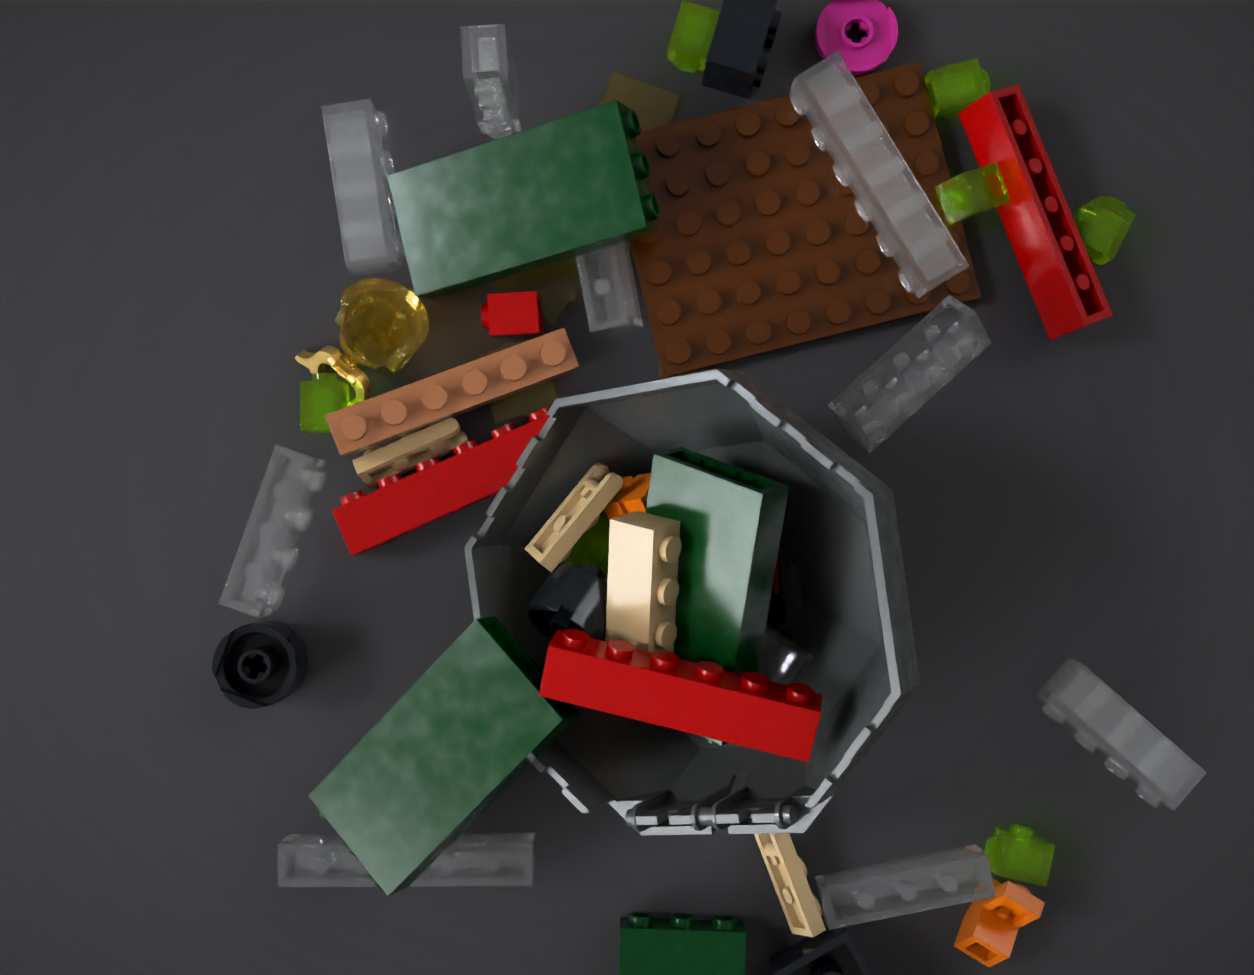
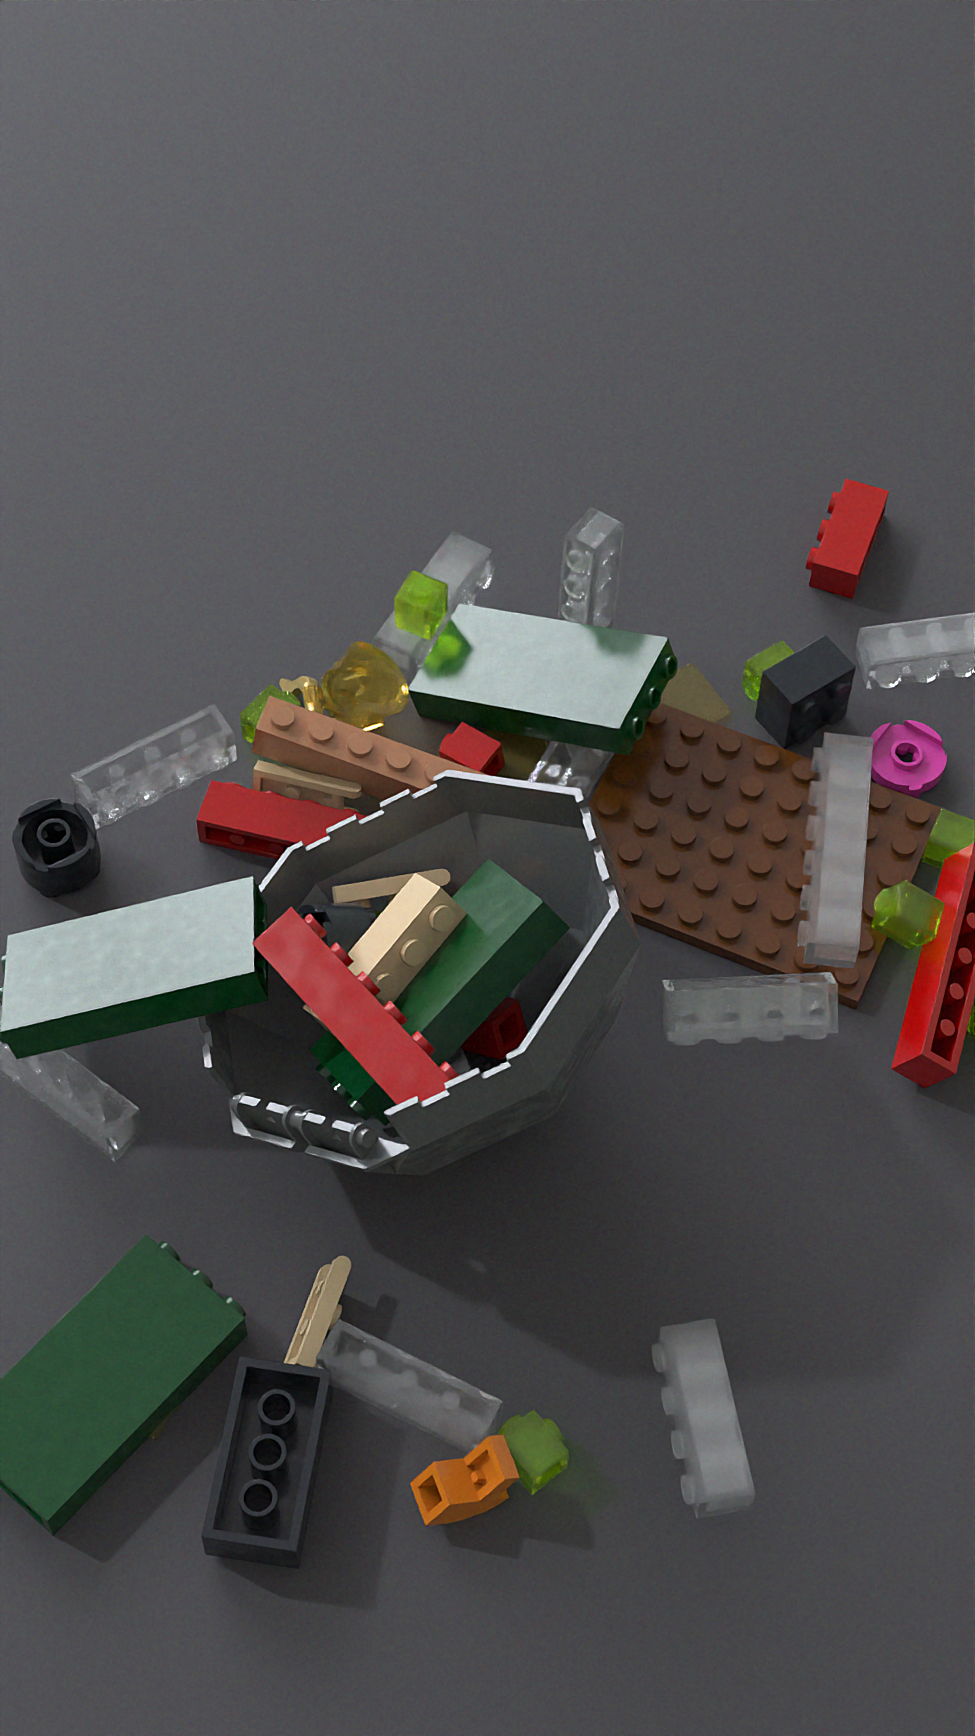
camera: 35 degrees right, 30 degrees down
(365, 212) = (421, 605): none -> clear neon green brick

